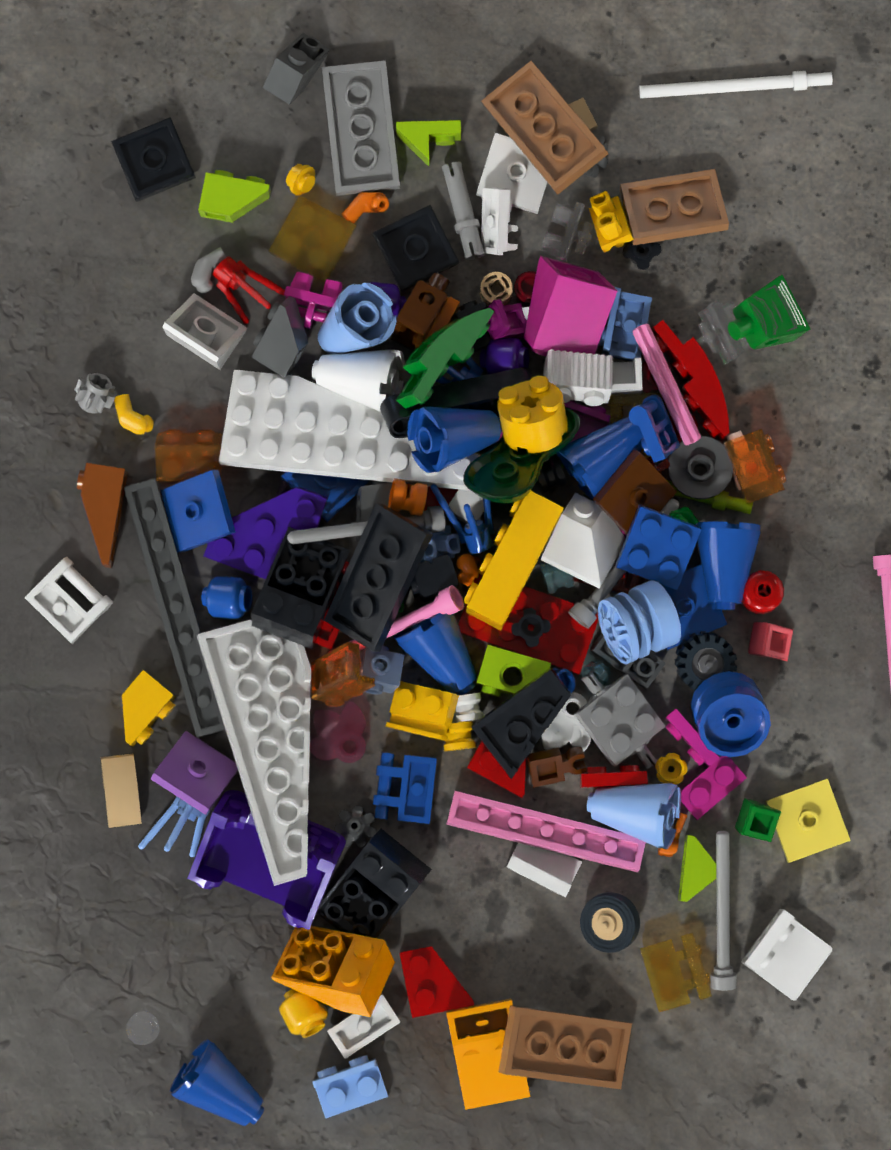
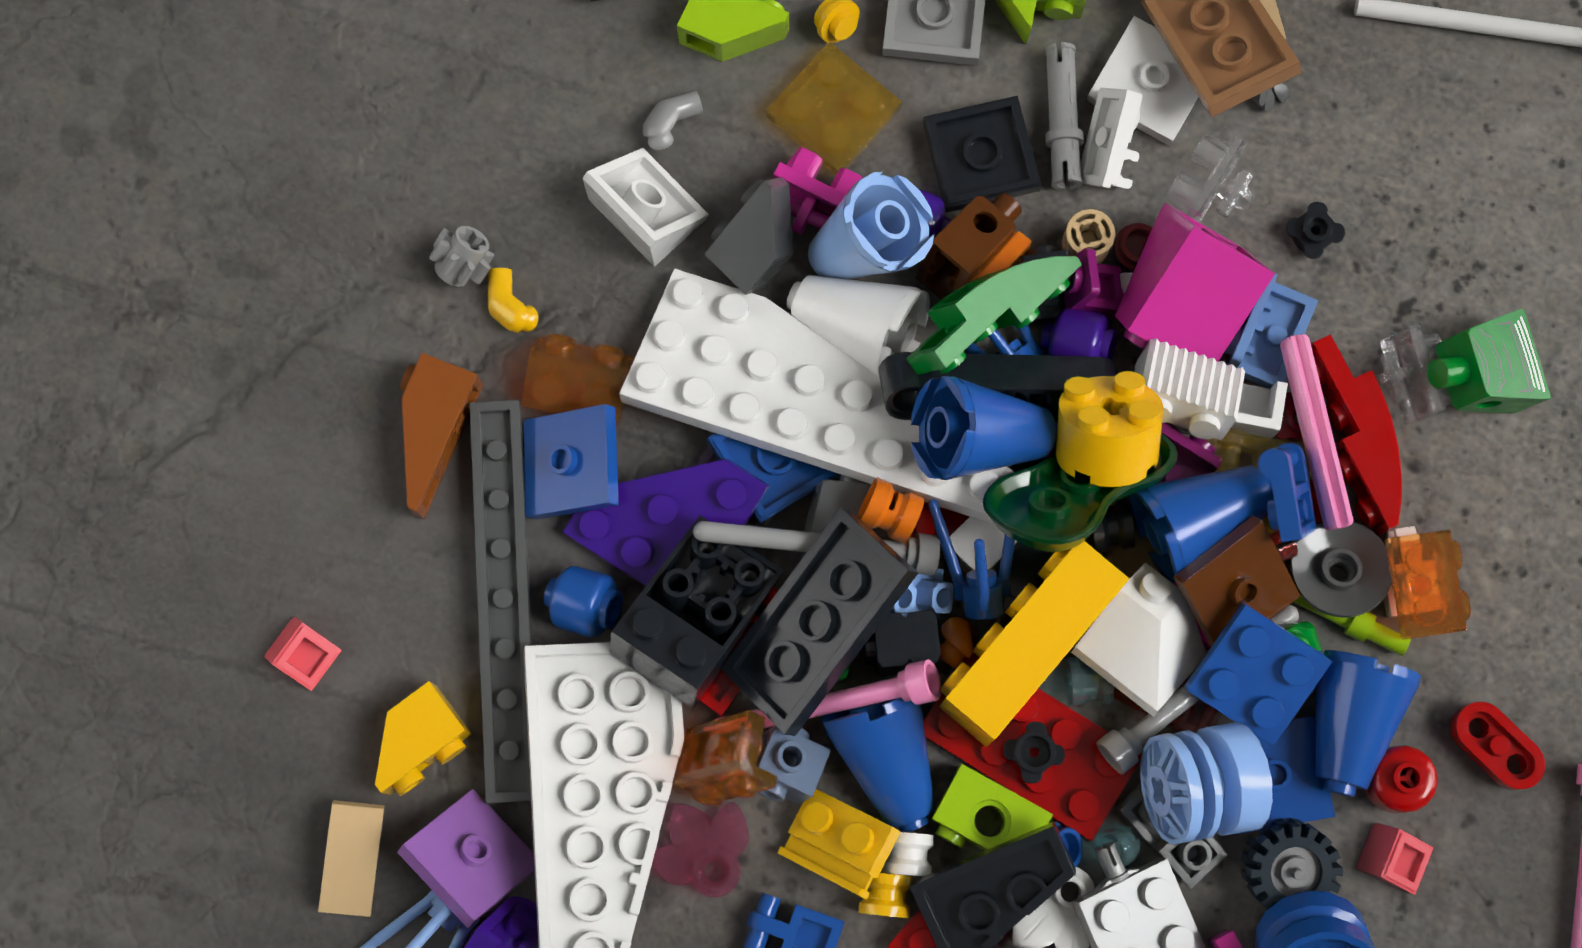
camera: 15 degrees right, 5 degrees down
(56, 670) = (302, 653): none -> coral slope
(61, 608) = (332, 560): white plate -> none
(232, 275) = (707, 134): red plant -> none
(366, 203) = (924, 75): orange arm -> none
(609, 221) = (1278, 176): yellow hips -> none
(674, 207) = (1378, 176): medium nougat plate -> none
(820, 555) = (1496, 744): none -> red plate

